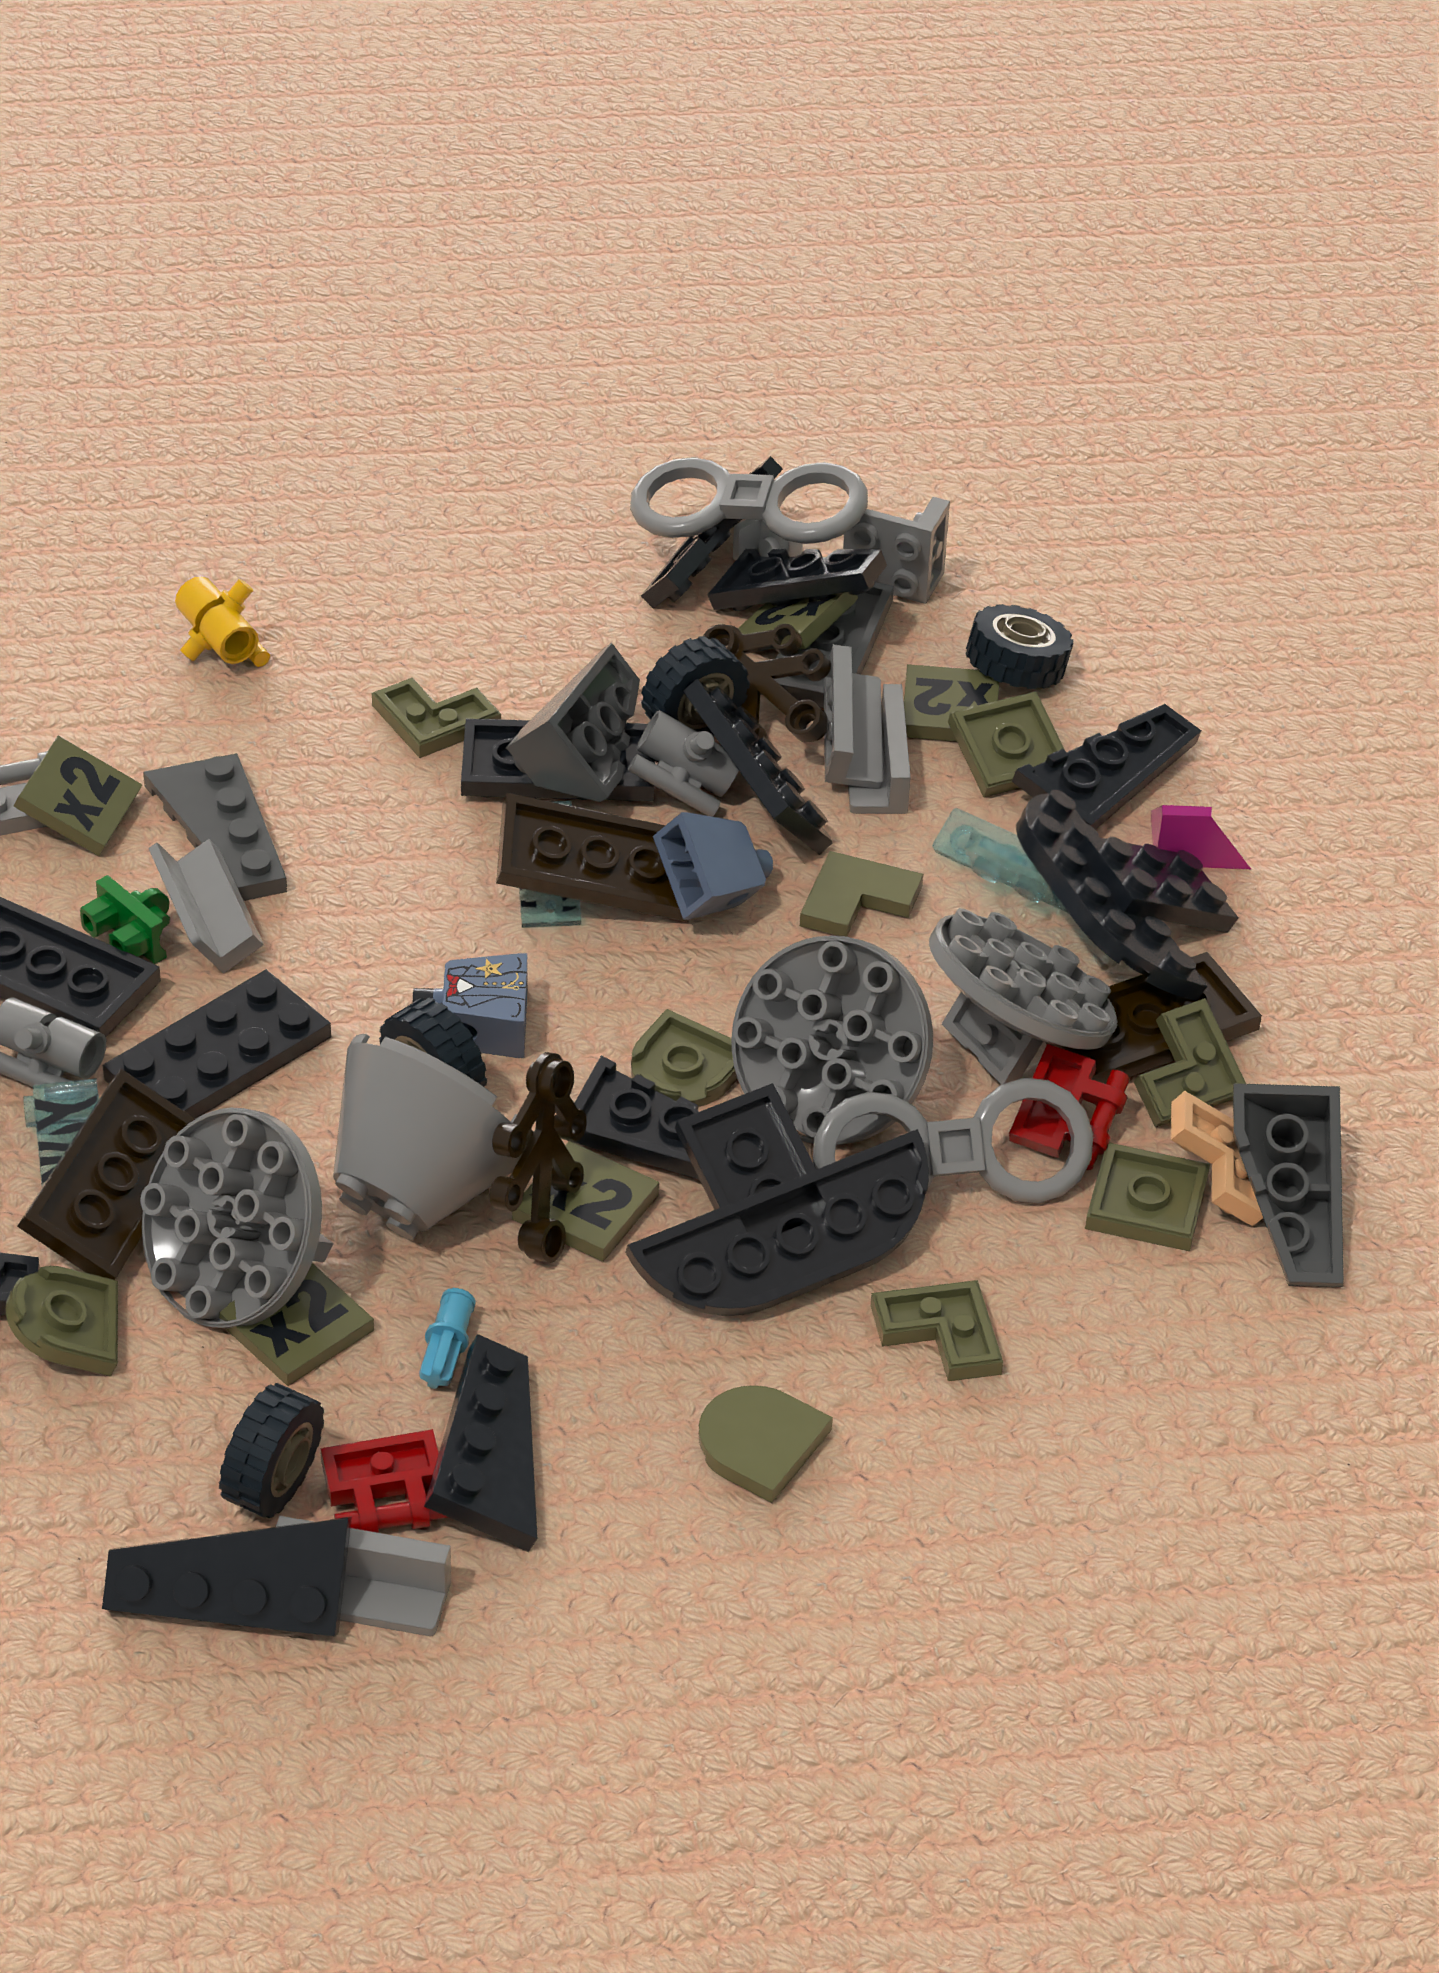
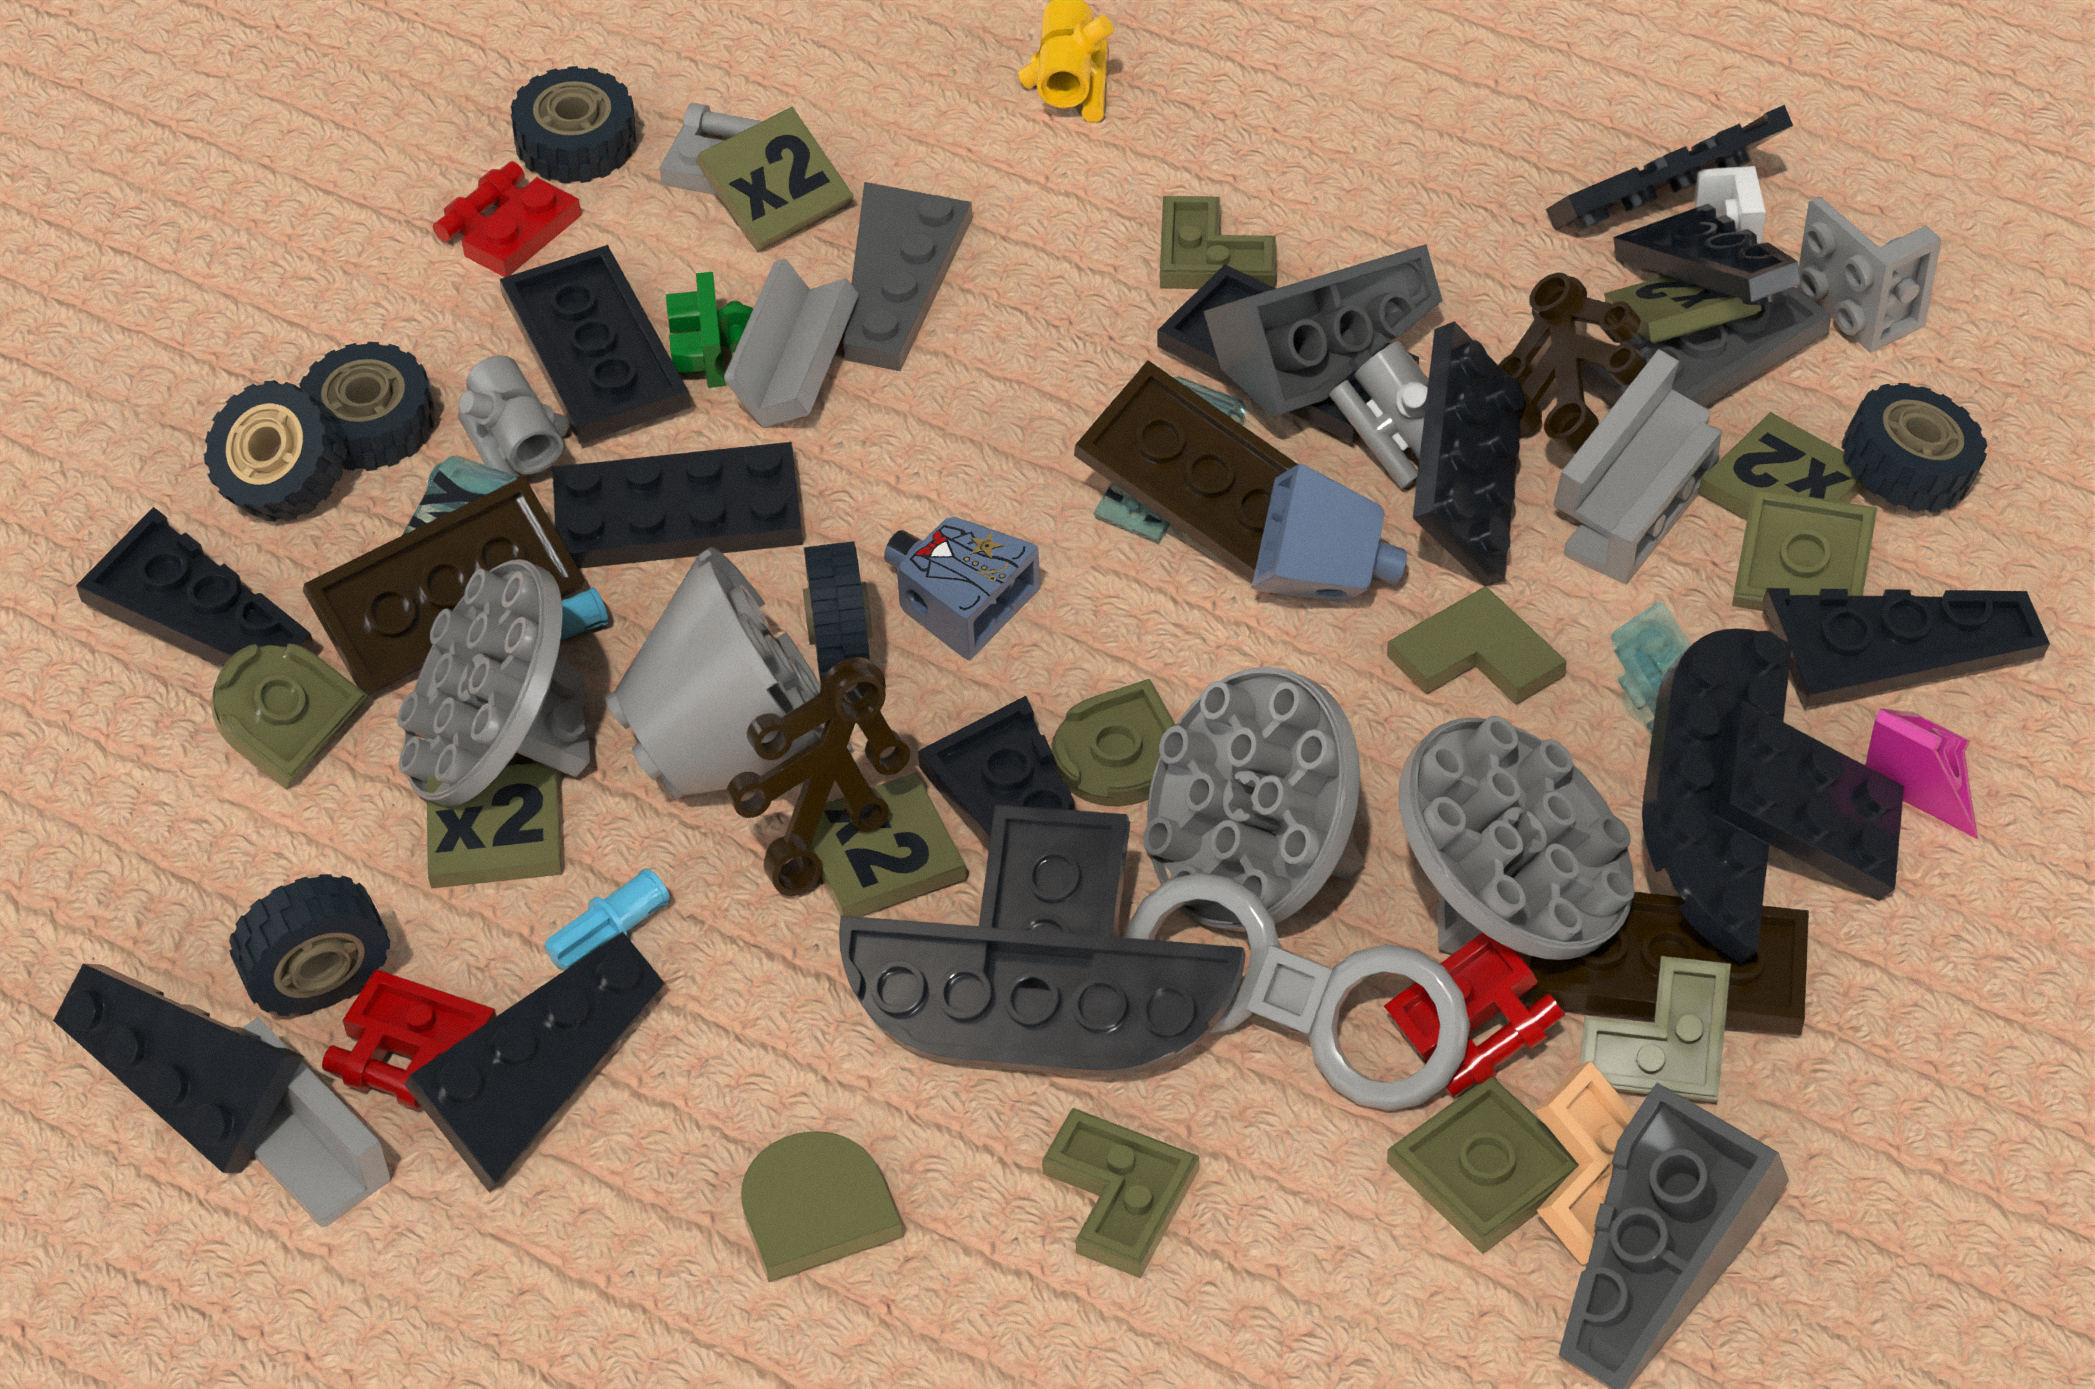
camera: 40 degrees right, 5 degrees up
(682, 665) = (1486, 310): black wheel -> none
(749, 498) = (1717, 145): light grey bar -> none

